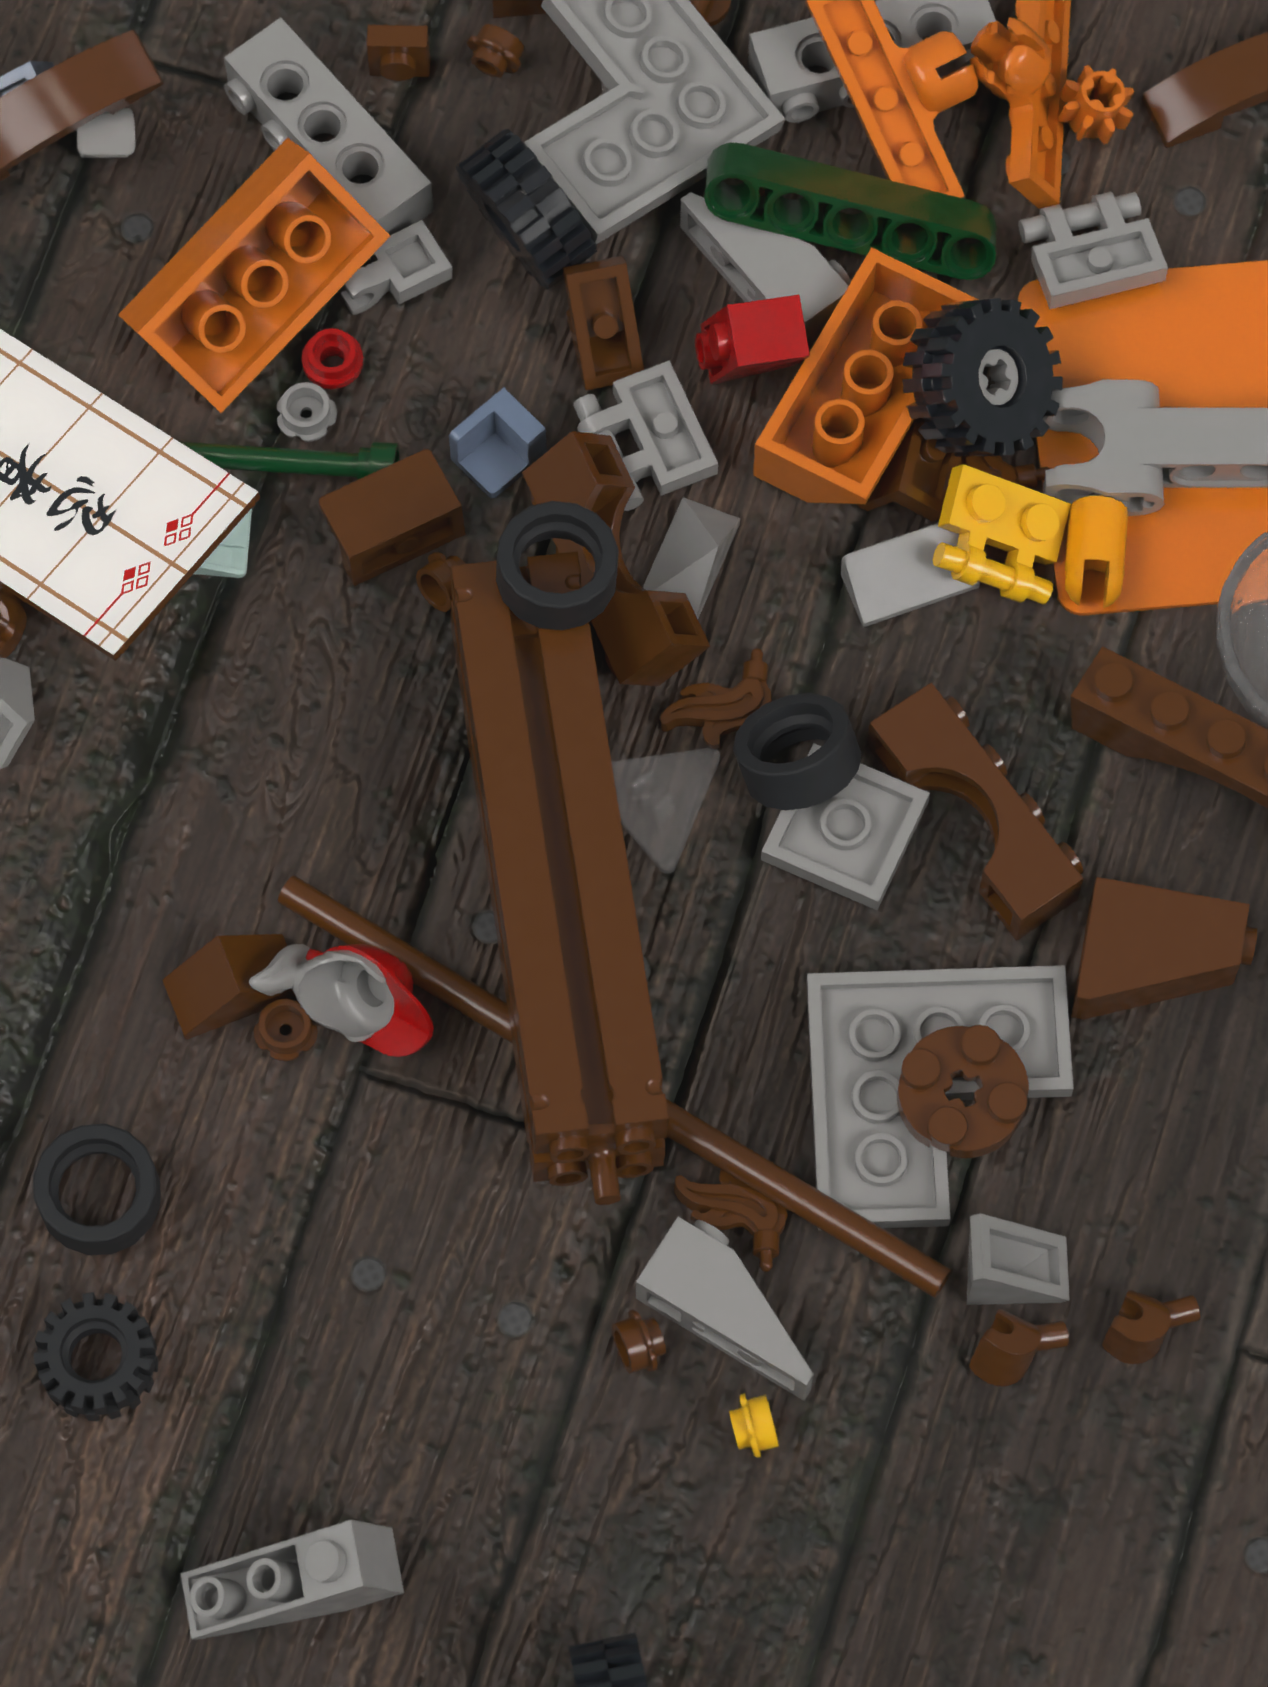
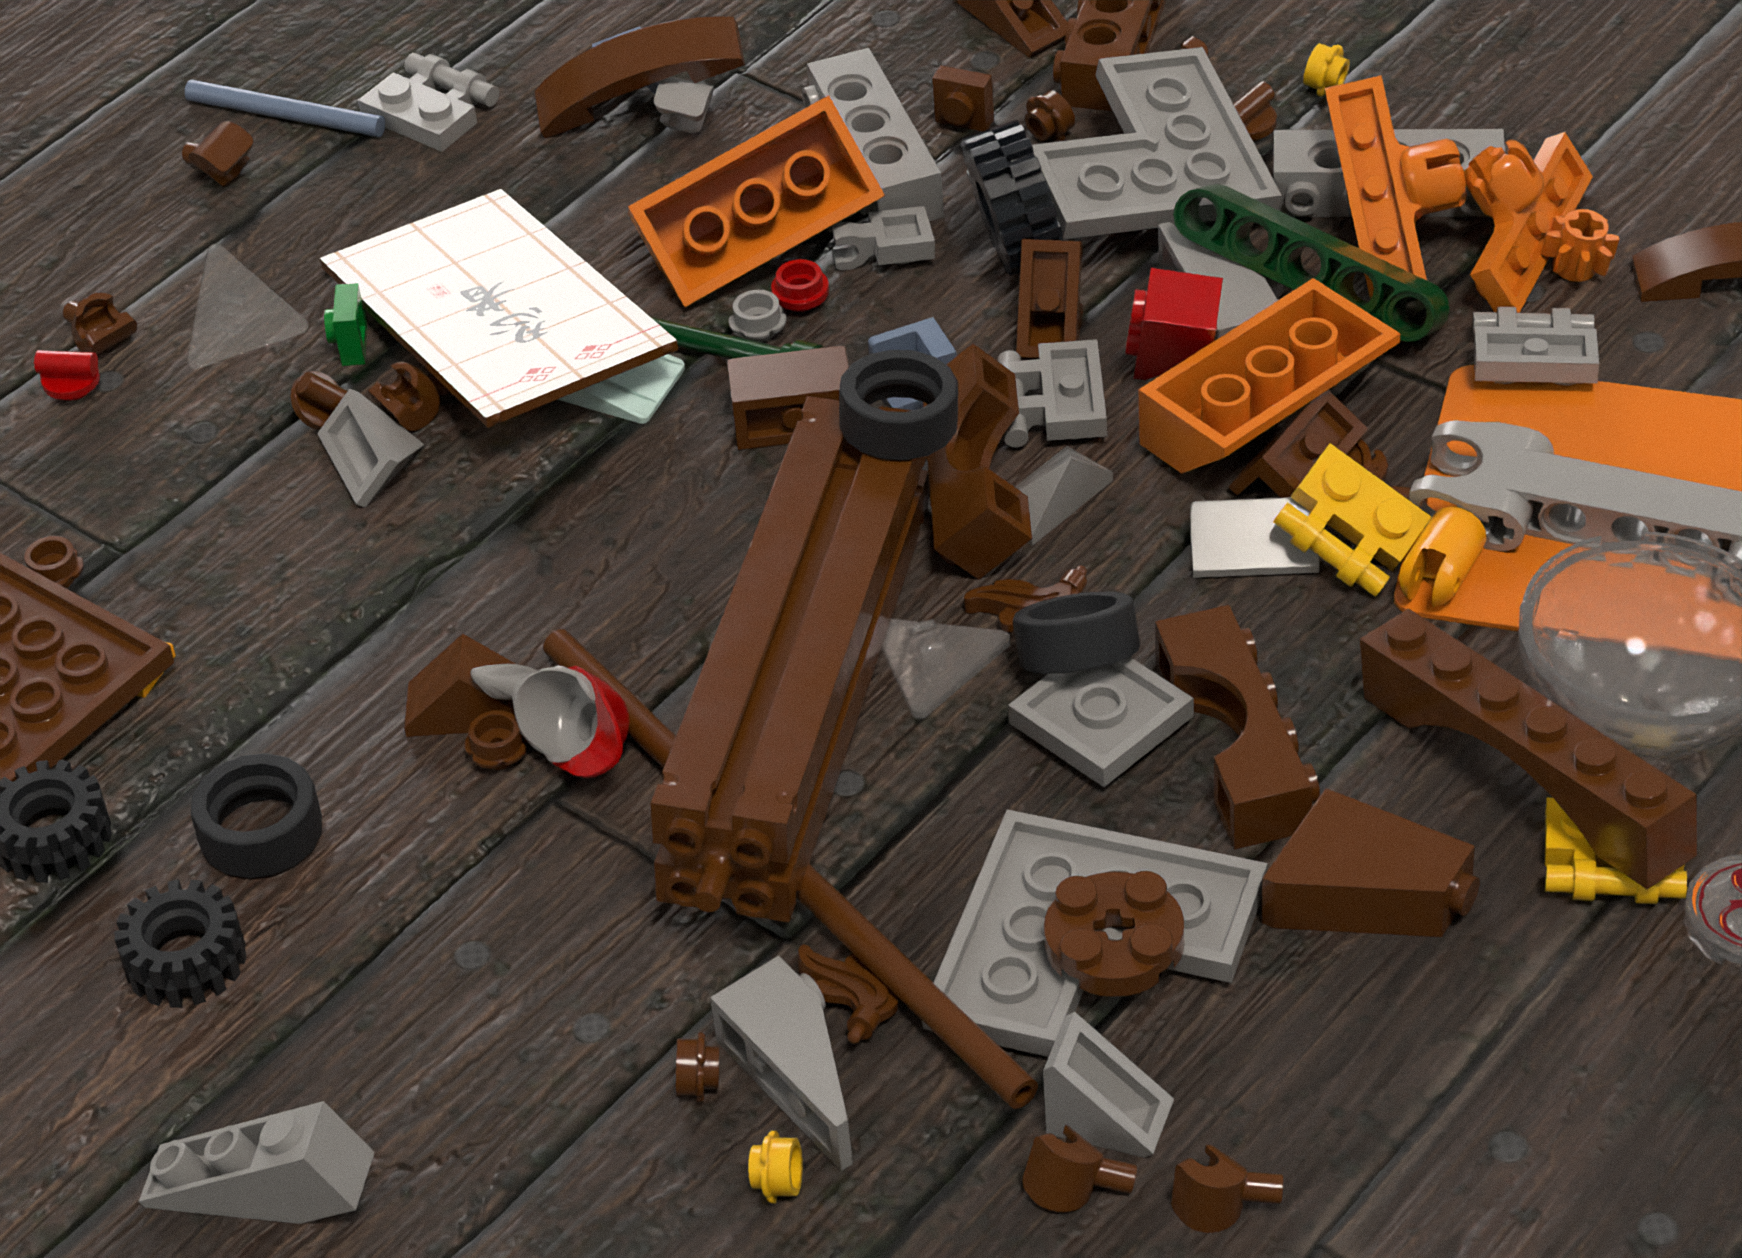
camera: 25 degrees right, 25 degrees down
(952, 384) = (1340, 374): black bush -> none

